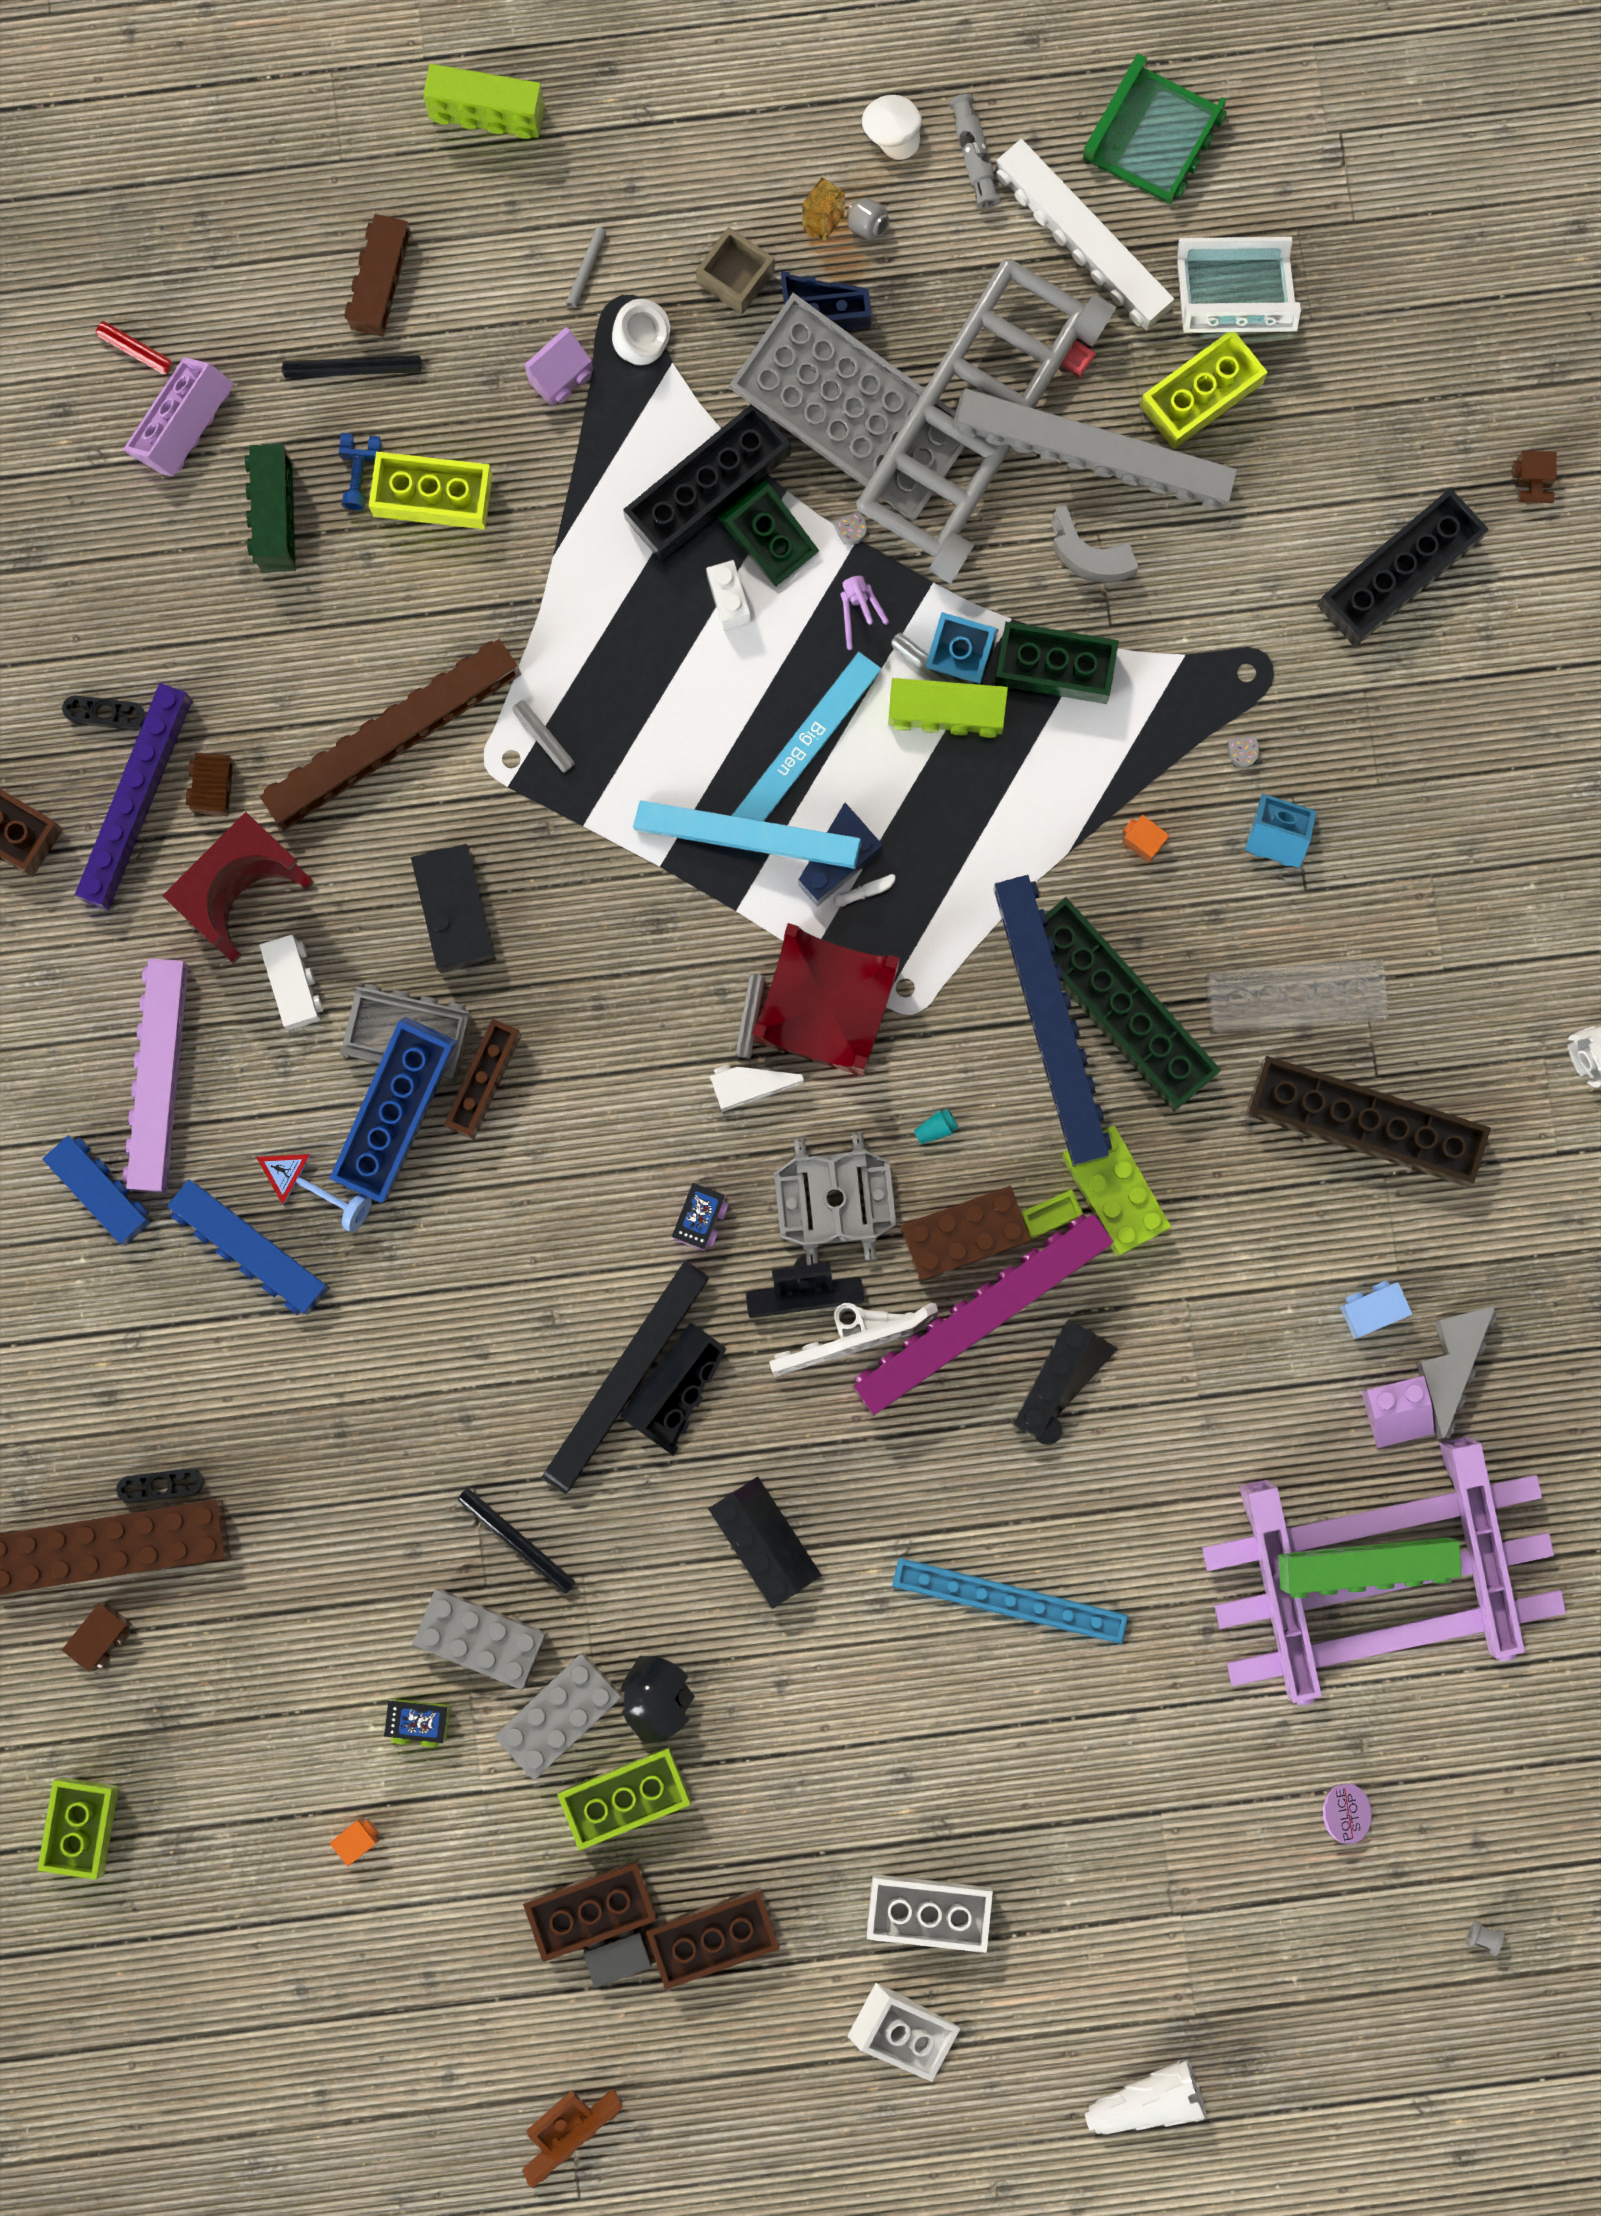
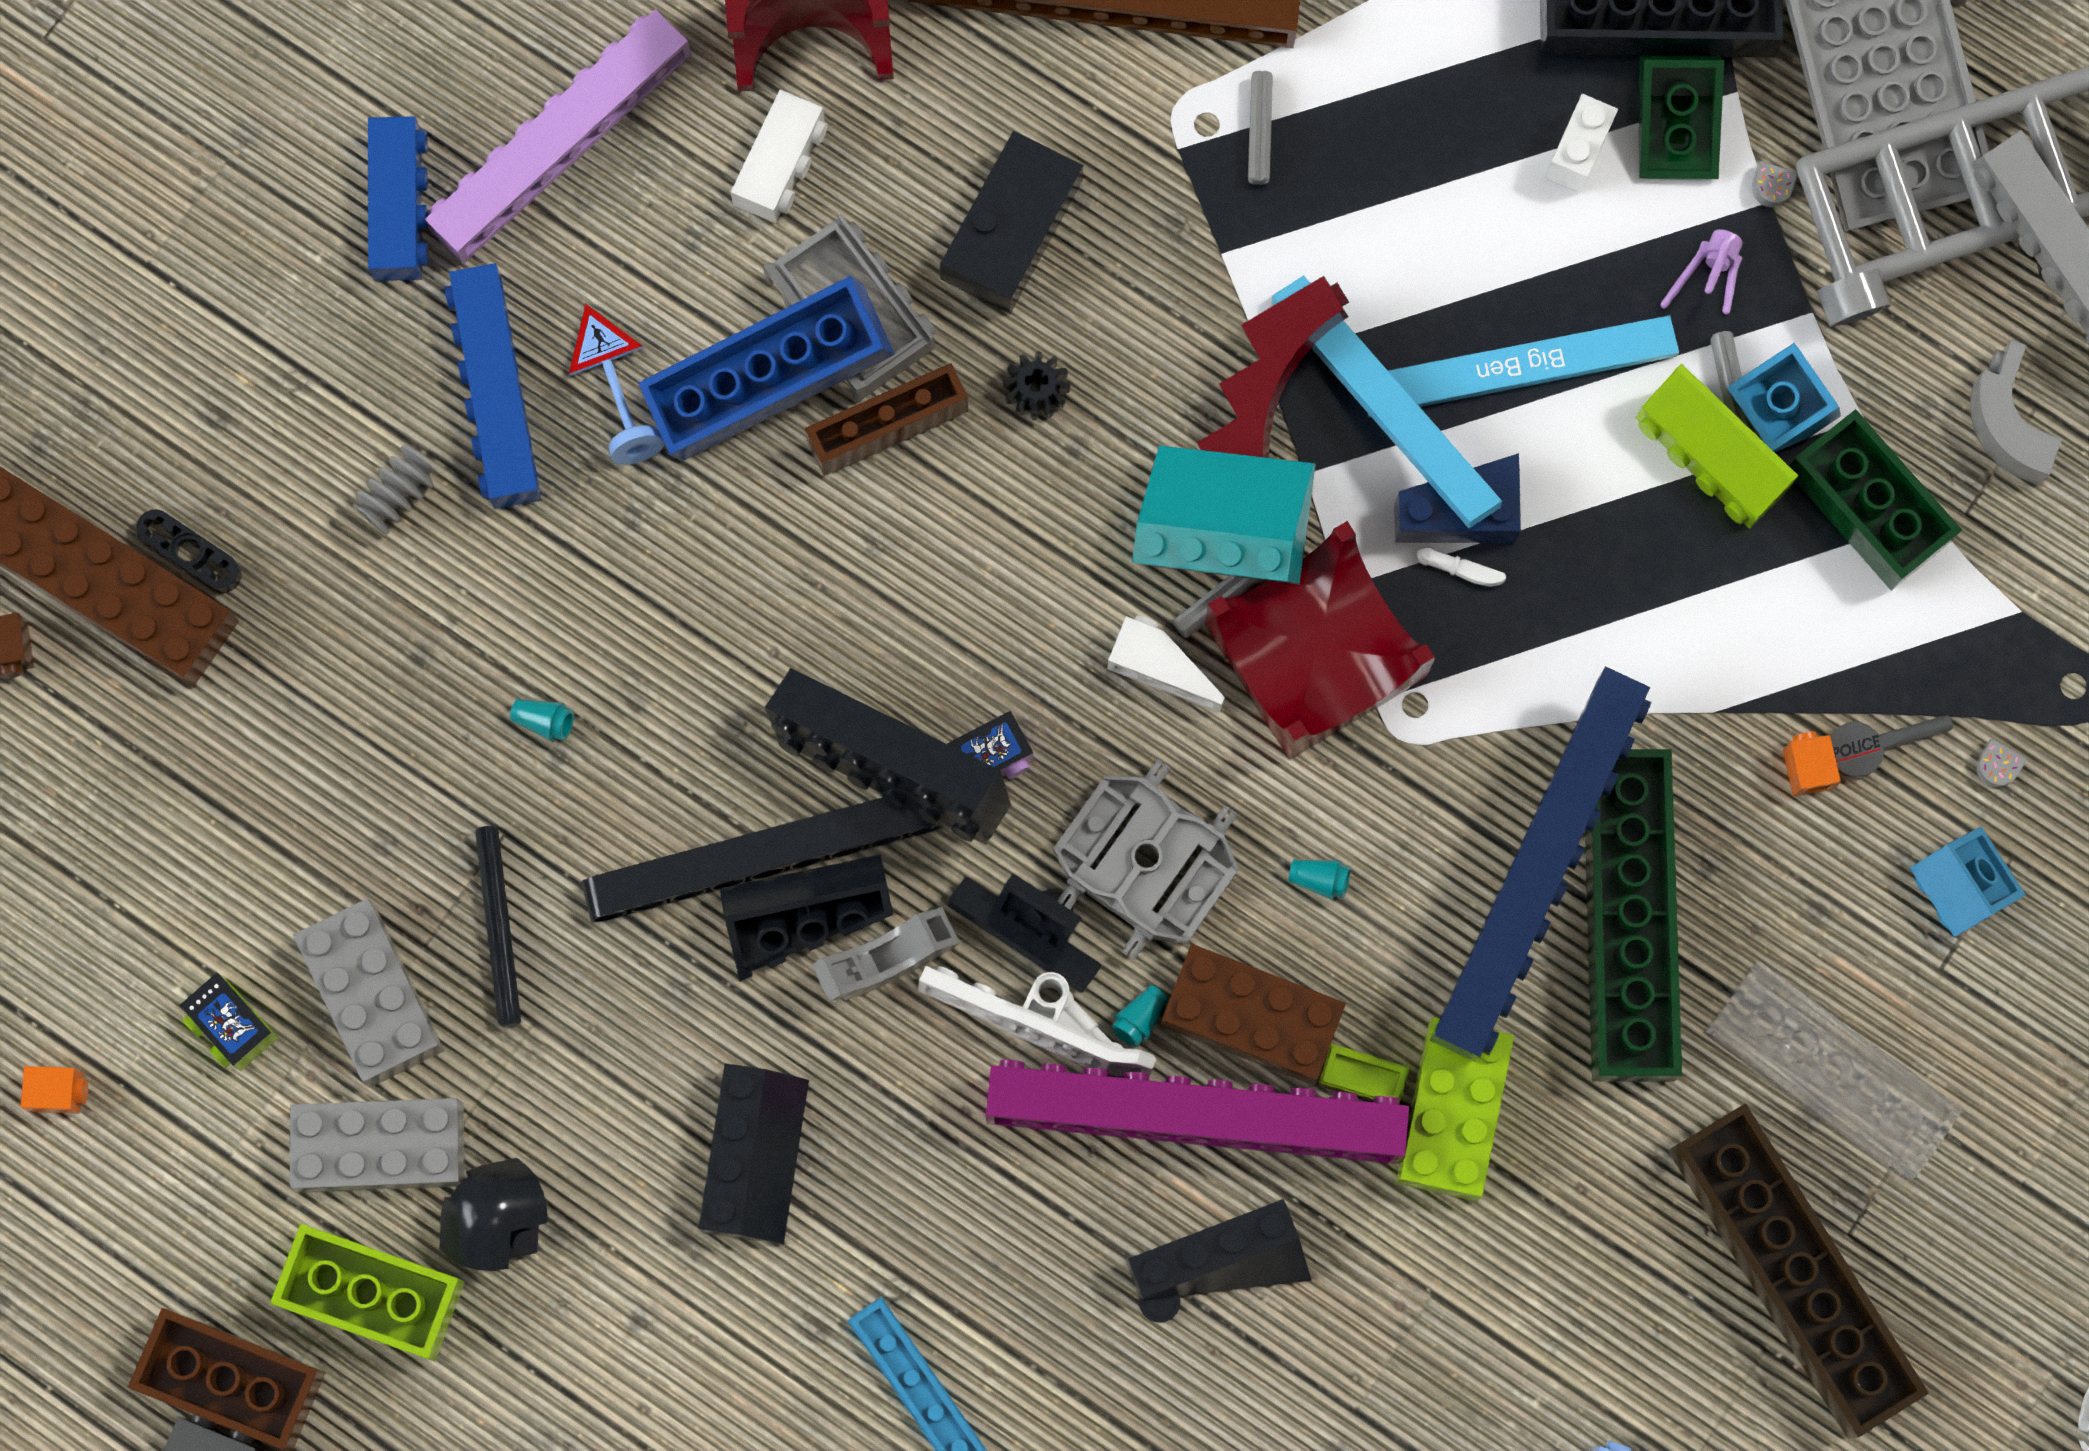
camera: 35 degrees right, 5 degrees down
(244, 1352) = (394, 488): none -> light grey piece
(439, 1407) = (544, 718): none -> teal cone
(537, 989) = (1021, 384): none -> black gear
(650, 1267) = (888, 757): none -> black brick
(691, 929) = (1280, 340): none -> dark red arch
(715, 974) = (1225, 514): none -> teal slope
(742, 1374) = (886, 957): none -> light grey arch
(905, 1287) = (1140, 1016): none -> teal cone
(1163, 805) = (1861, 748): none -> dark grey piece

